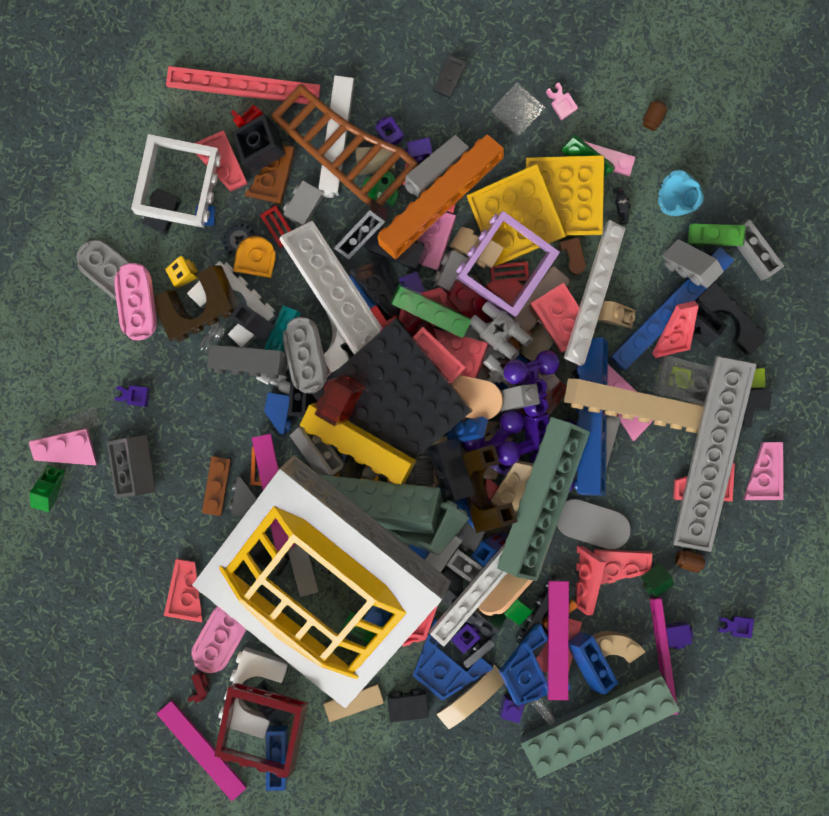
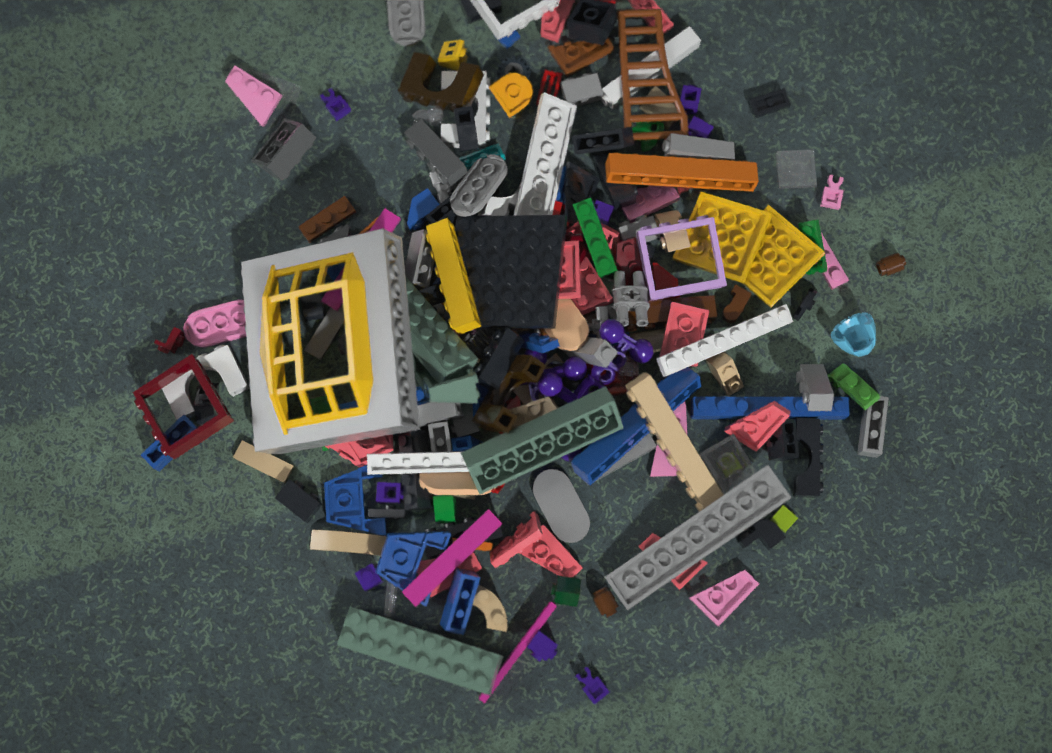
camera: 50 degrees right, 10 degrees down
(46, 488) = (212, 108): green slope -> none
(135, 301) = (401, 44): bright pink tile -> none
(183, 597) = (226, 269): coral wing -> none
(201, 750) = (126, 384): dark pink tile -> none
(338, 400) = (470, 232): clear red brick -> none
(507, 265) = (670, 258): red tile -> none

